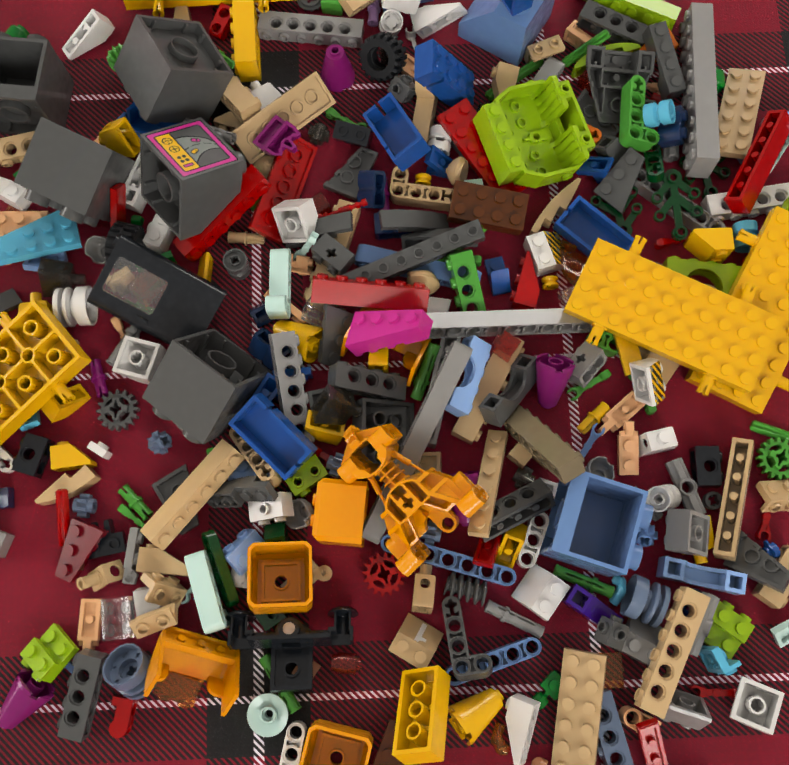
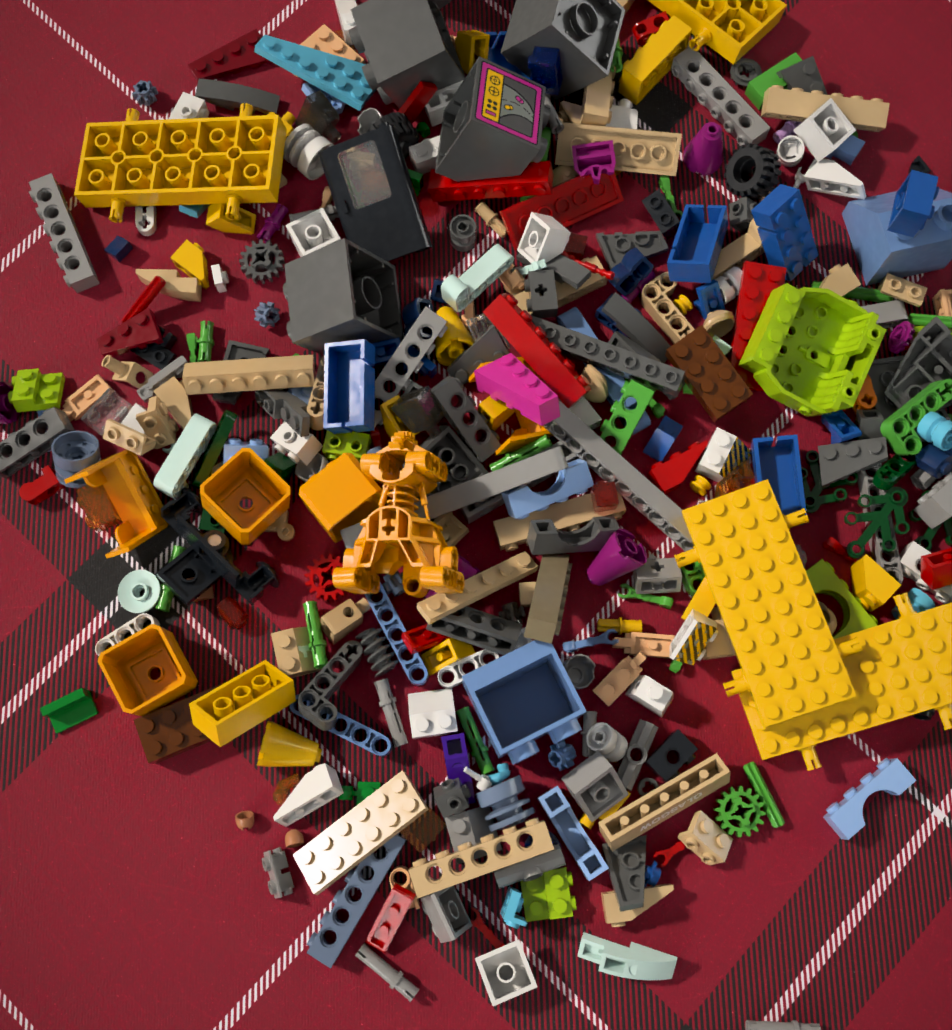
camera: 45 degrees right, 0 degrees up
(35, 466) = (165, 245): black brick -> none
(84, 505) = (167, 308): sand blue gear -> none
(188, 104) = (546, 68): none -> clear blue brick
(206, 266) = (437, 215): yellow slope -> none
(318, 134) = (635, 189): clear smoke gear -> none
(423, 624) = (317, 643): none -> bright green pin
(556, 206) = (771, 428): tan slope -> none
(570, 72) = (900, 337): none -> magenta gear
(617, 601) = (483, 780): none -> white hand

